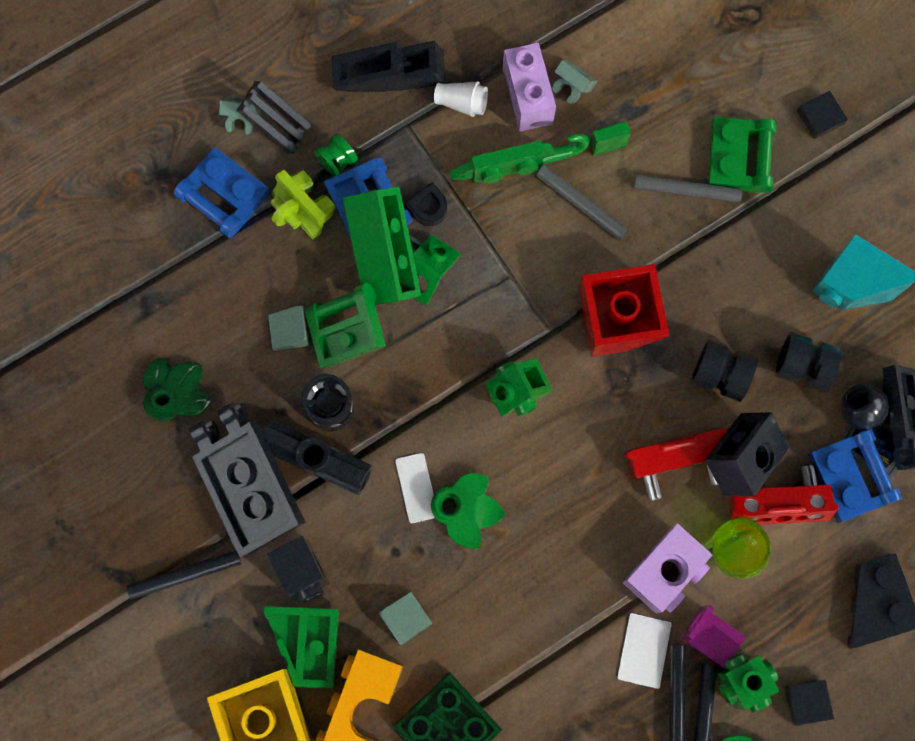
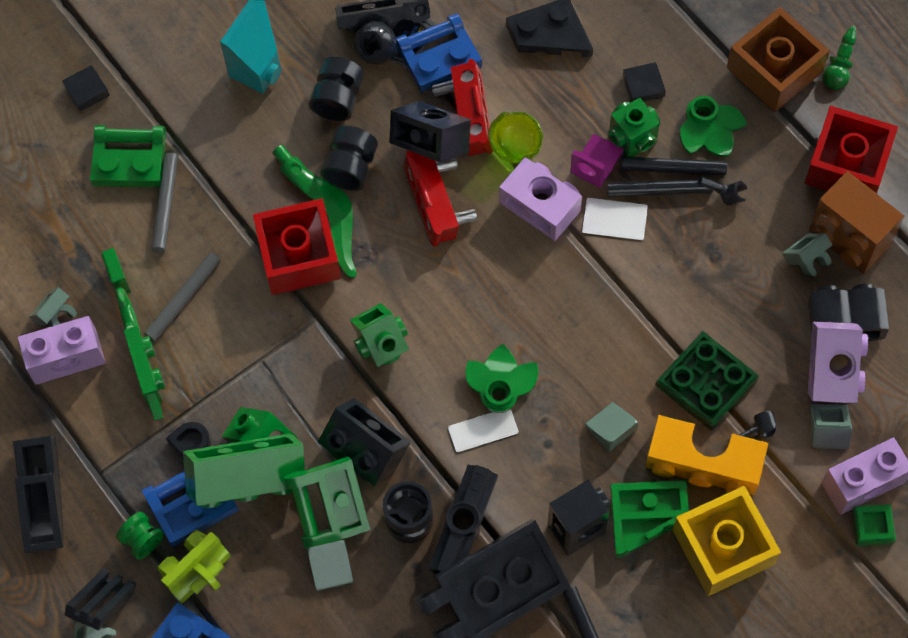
camera: 90 degrees left, 10 degrees down
(405, 364) = (365, 439): none -> black brick
(463, 97) = (72, 413): white cone -> none
(683, 352) = (335, 201): none -> green piece

